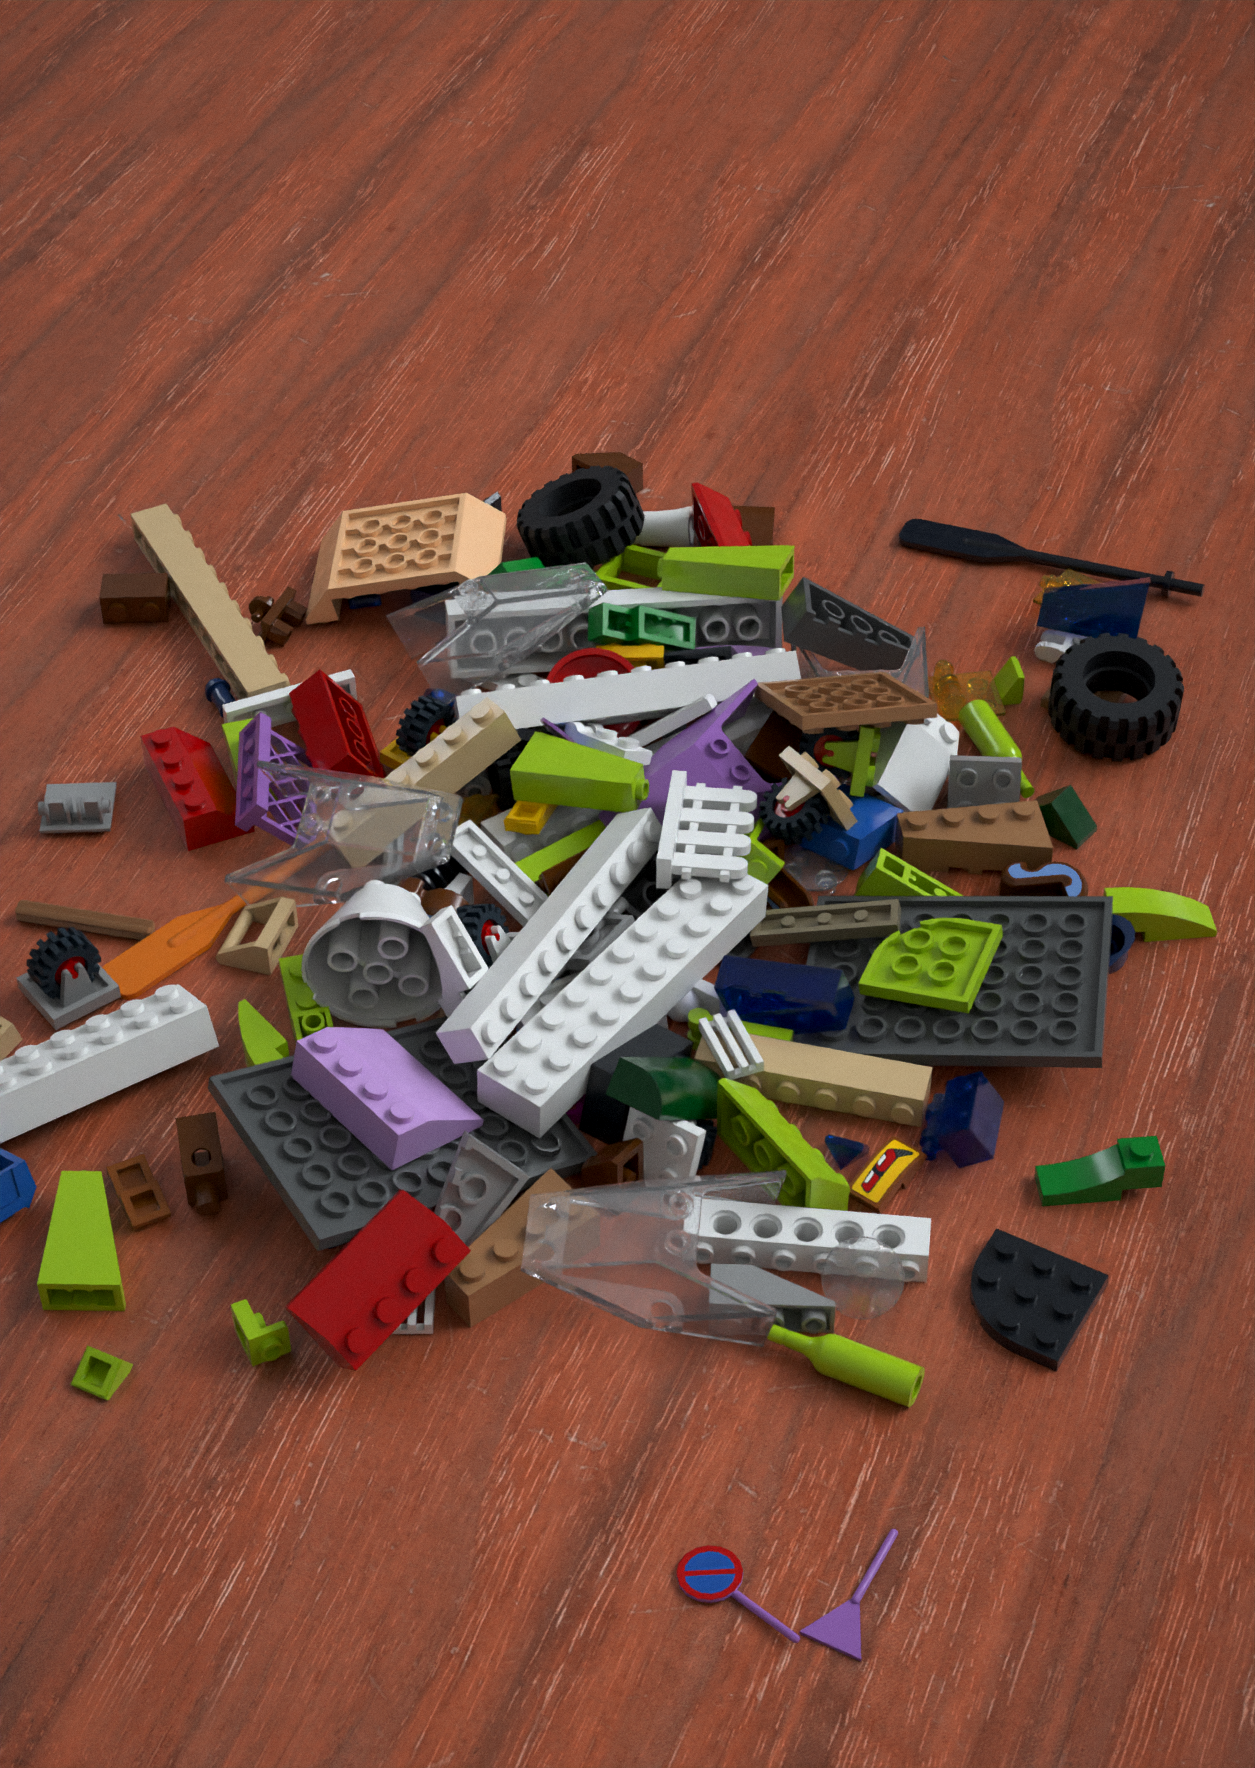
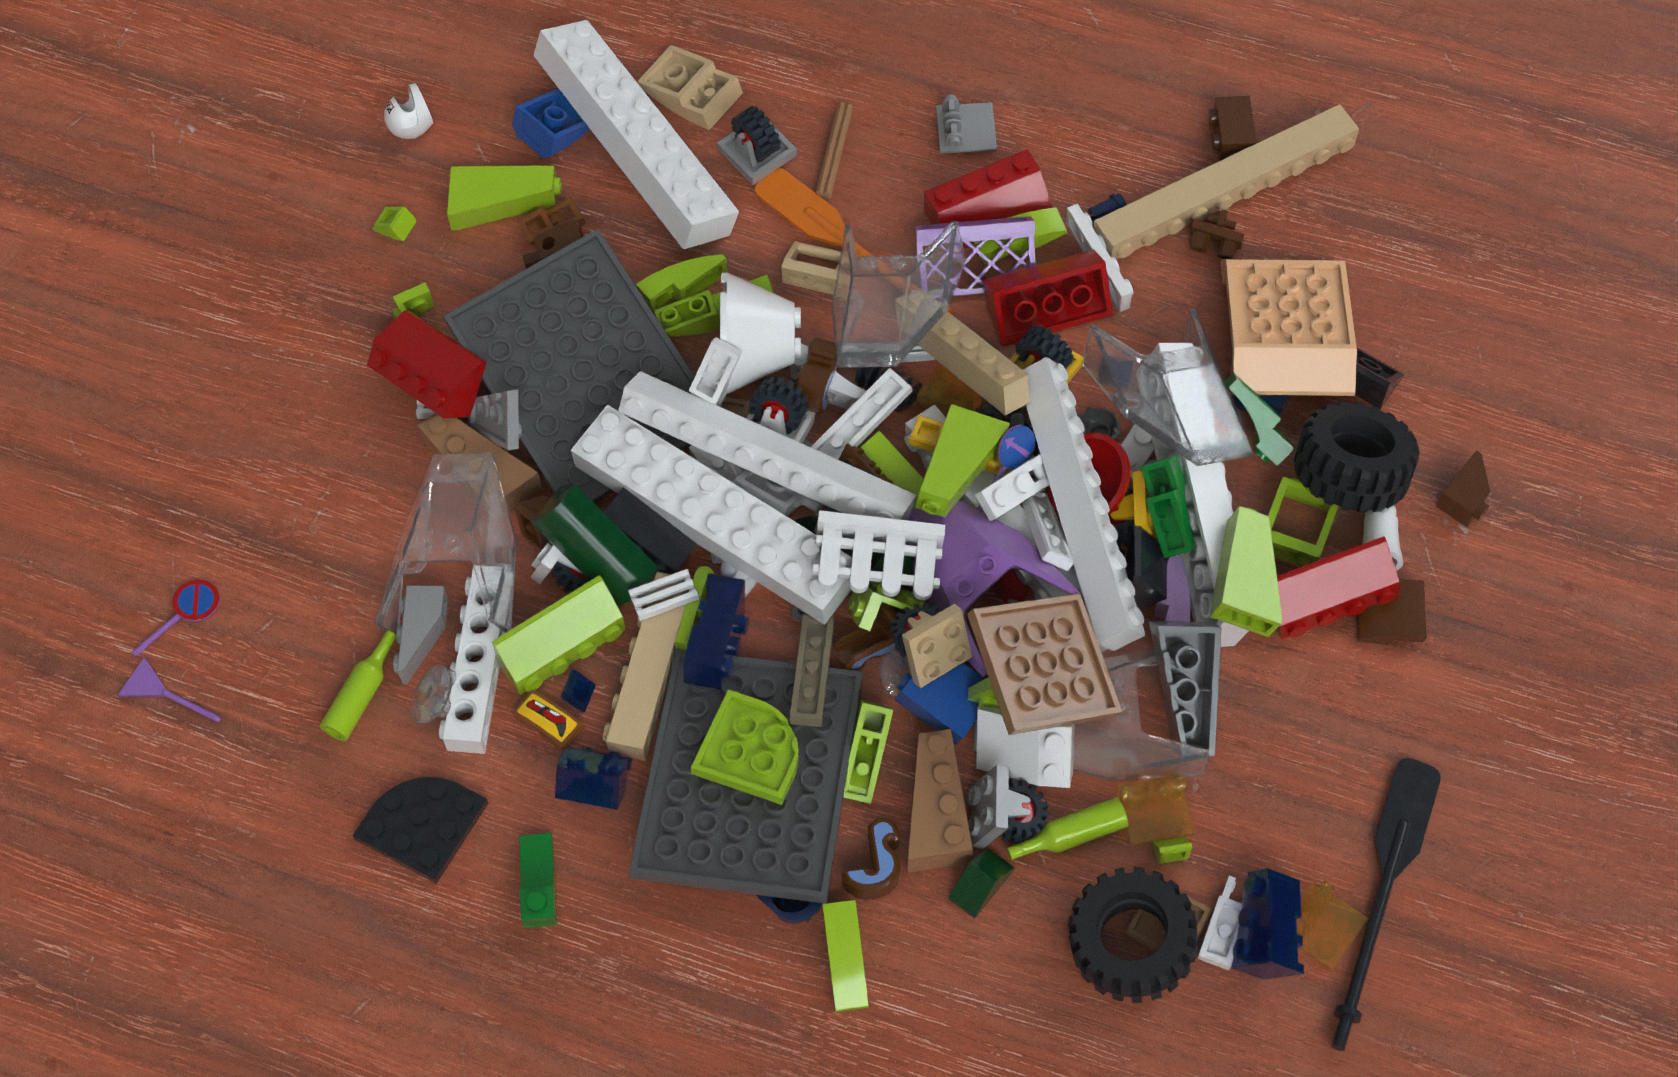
camera: 90 degrees right, 20 degrees up
(380, 1093) = (597, 348): lavender slope -> none

